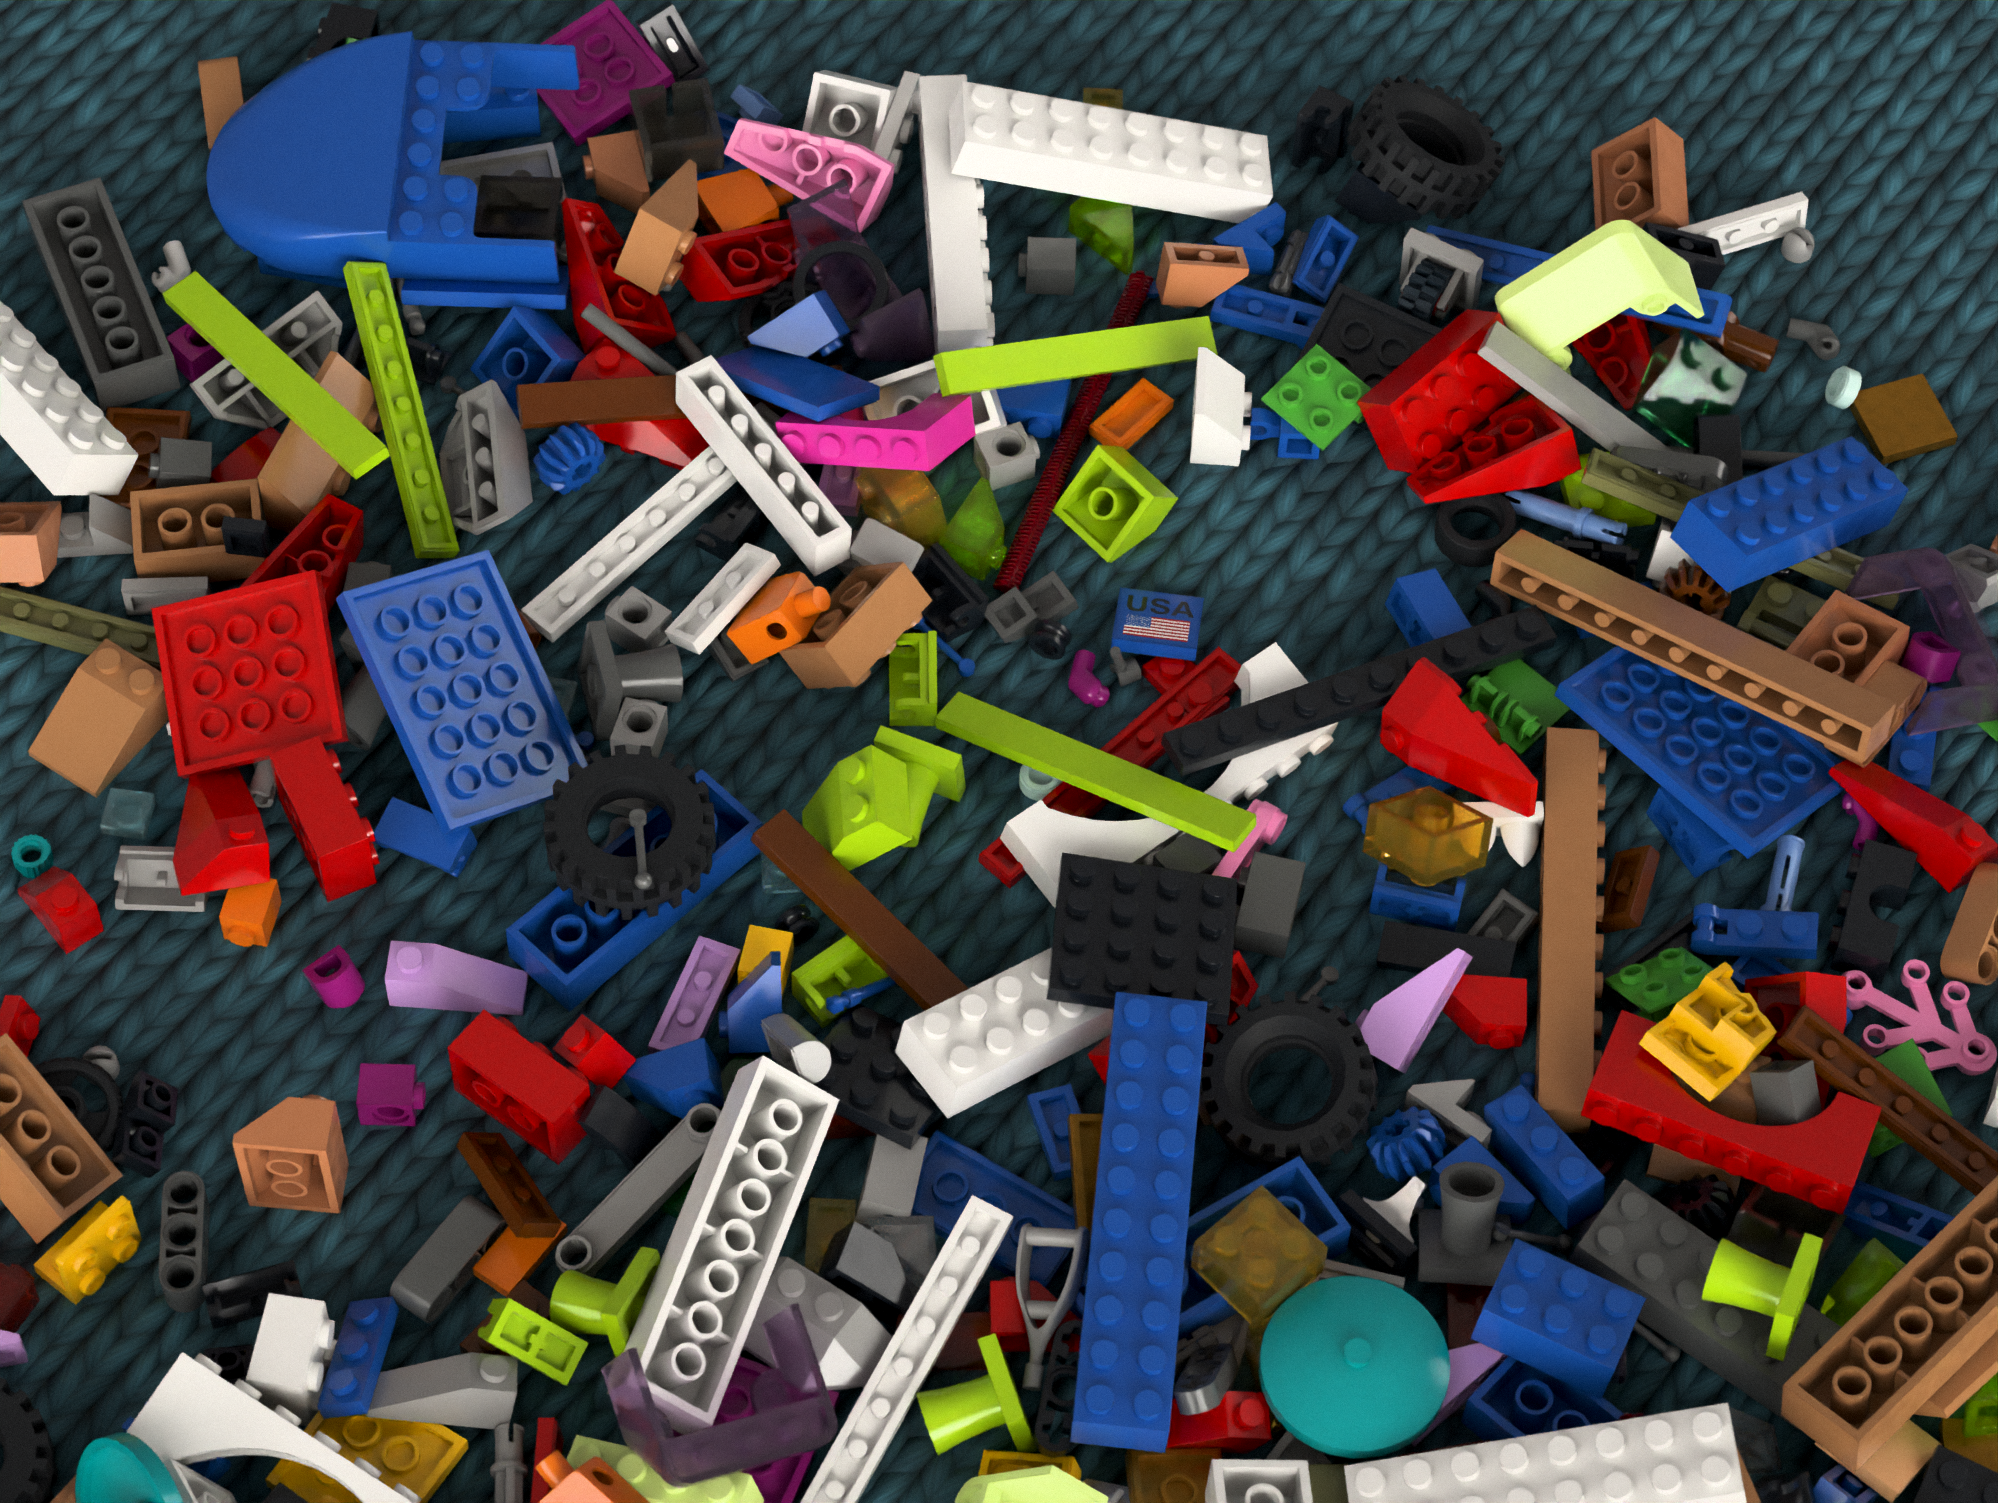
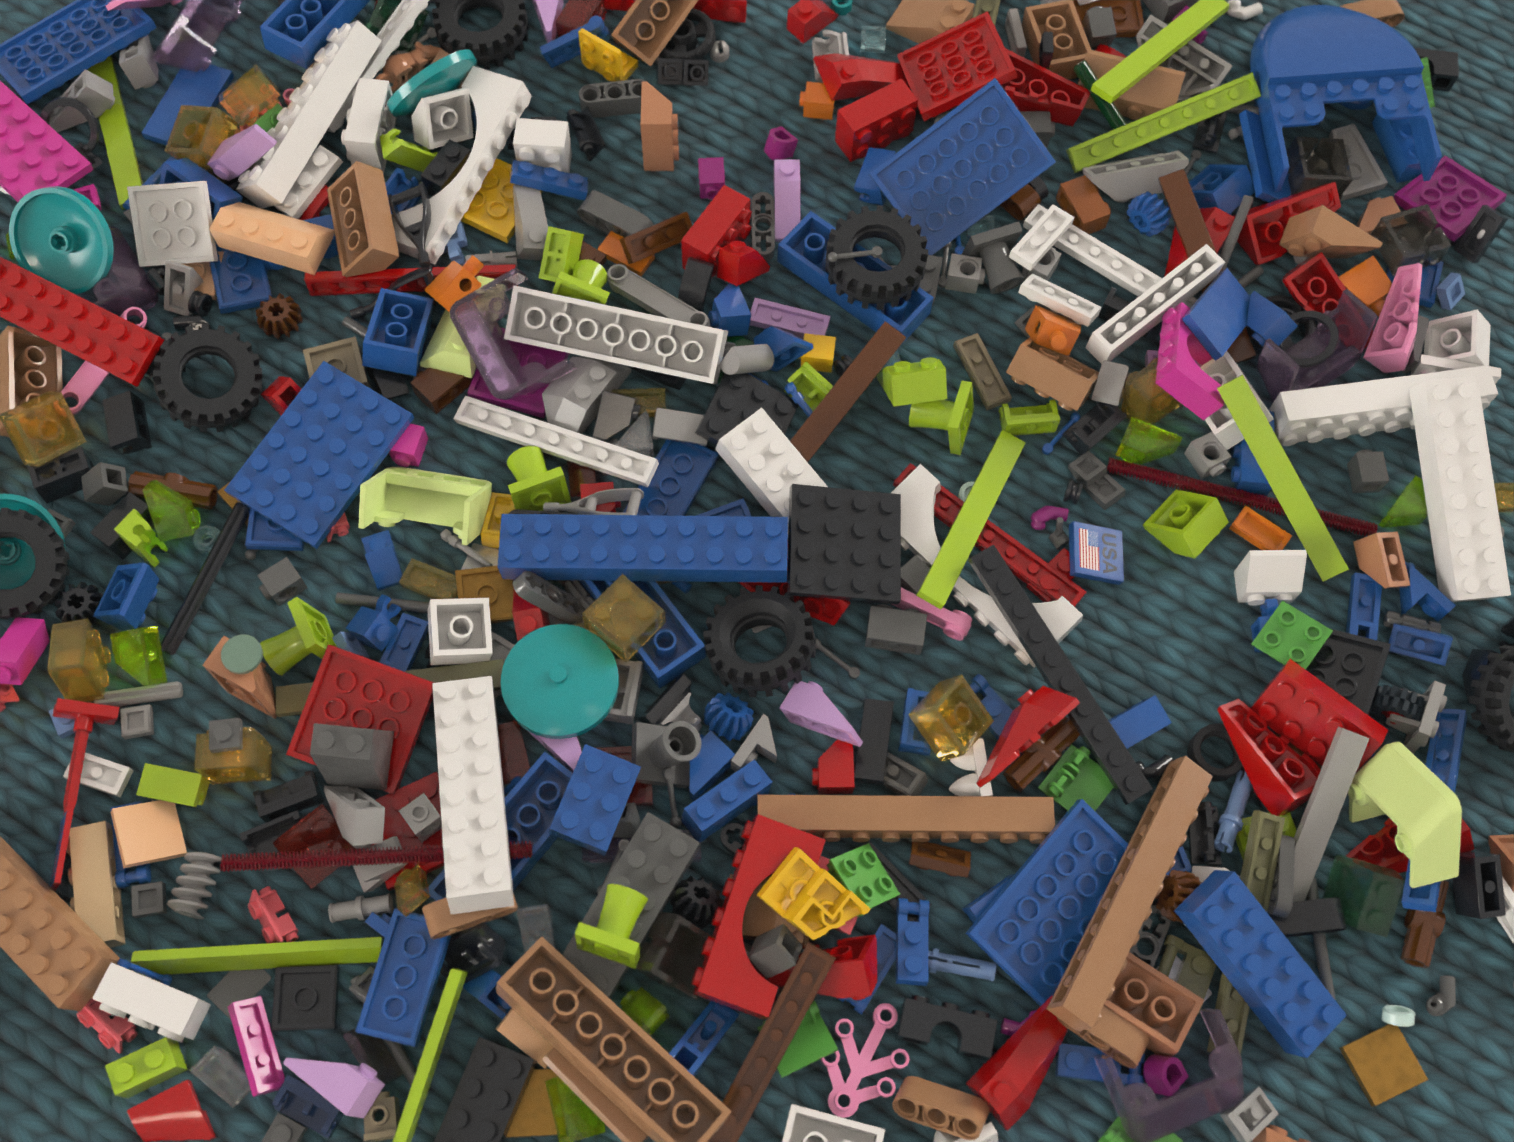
camera: 85 degrees right, 10 degrees up
(51, 1292) = (568, 45): none -> blue plate
(334, 483) = (1109, 110): none -> dark green axle
(465, 1010) = (767, 217): none -> dark grey beam
(533, 547) = (1082, 201): none -> dark orange brick
(605, 599) = (1041, 237): none -> white plate
(817, 736) = (982, 371): none -> dark tan tile

